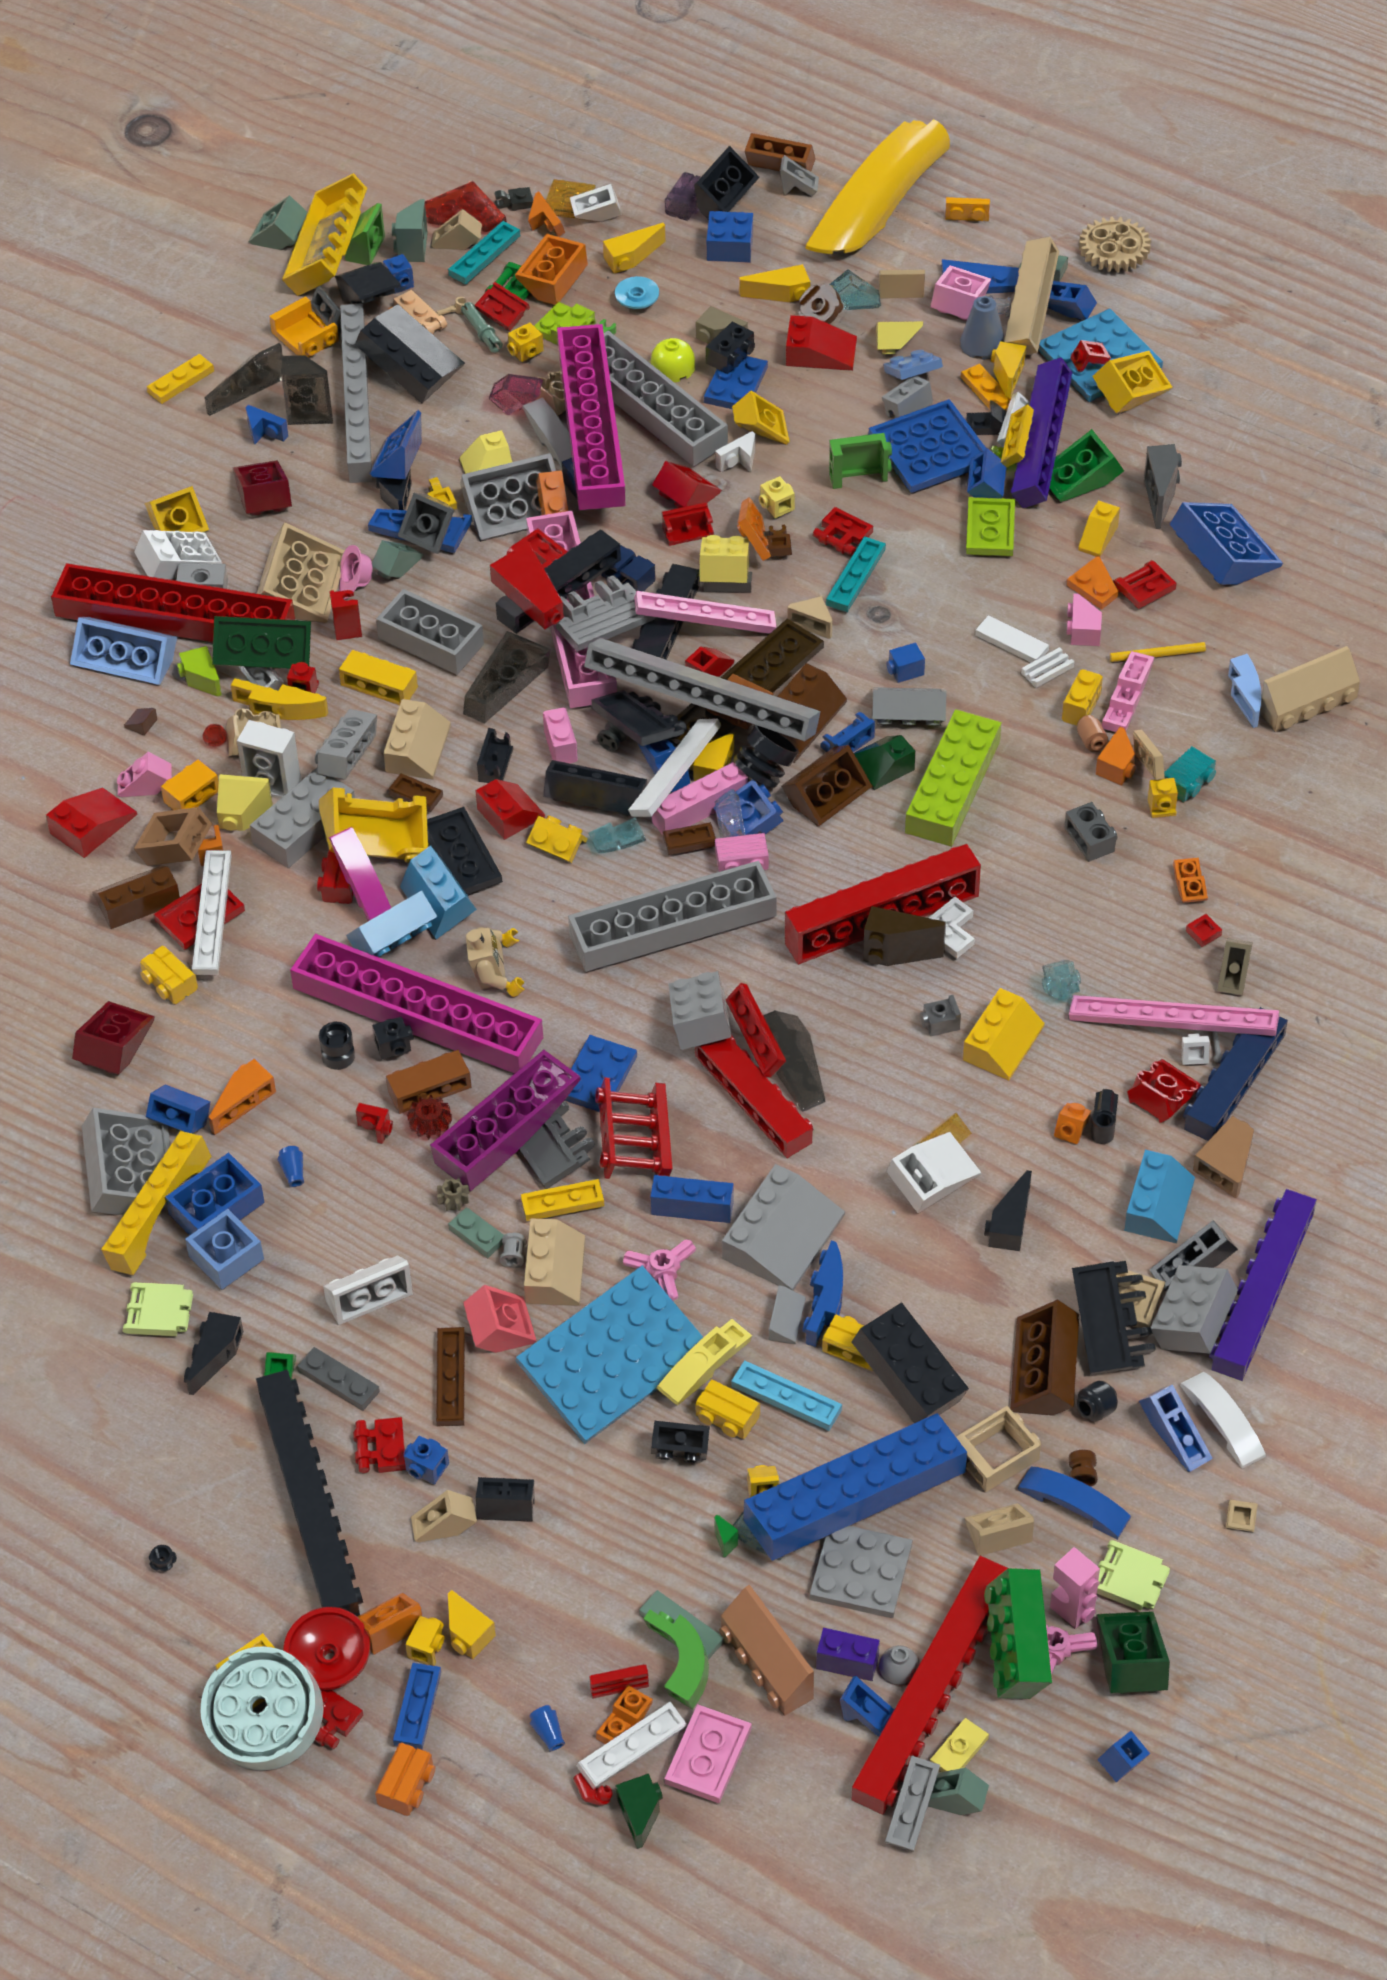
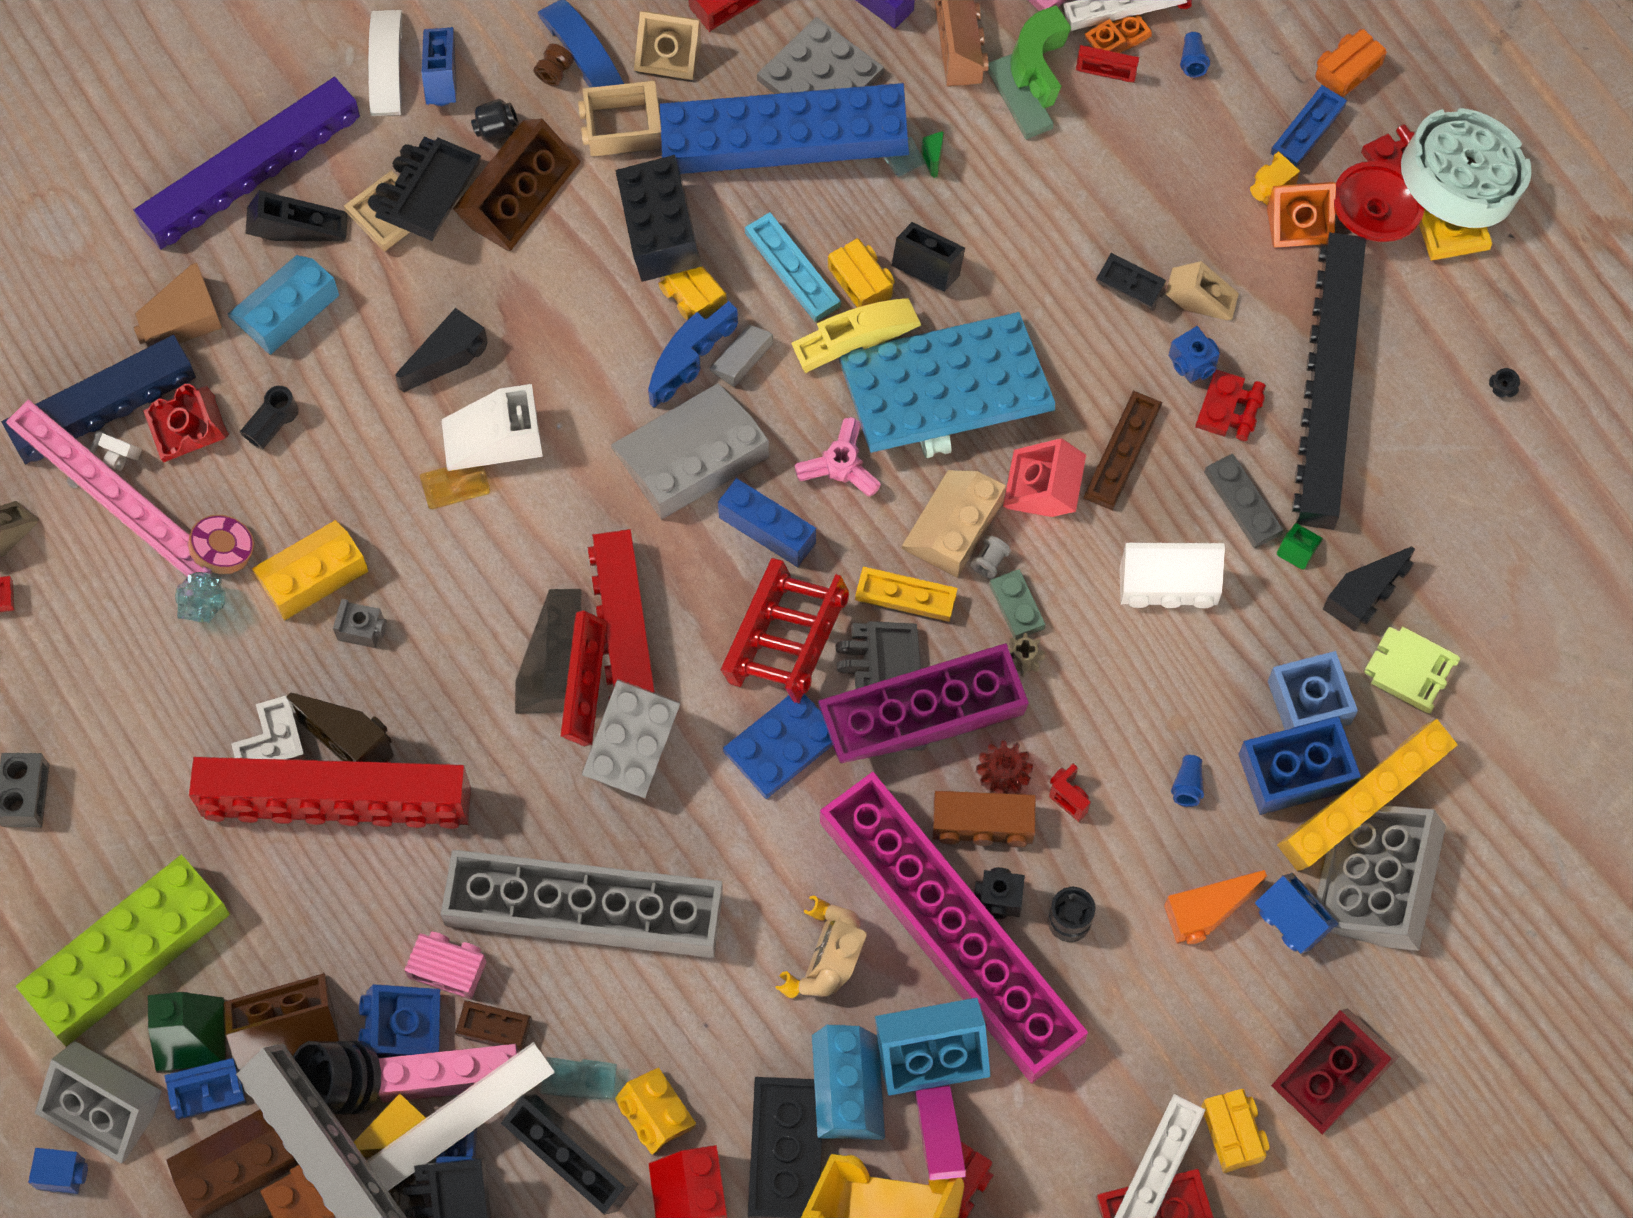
camera: 155 degrees left, 15 degrees up
(468, 1627) = (1226, 175): yellow slope -> none
(729, 815) = (432, 1017): clear slope -> none
(761, 1479) = (872, 174): yellow slope -> none
(1071, 1122) = (306, 429): orange bracket -> none
(1074, 1020) = (220, 544): none -> tile
(1194, 1309) = (339, 154): light grey brick -> none

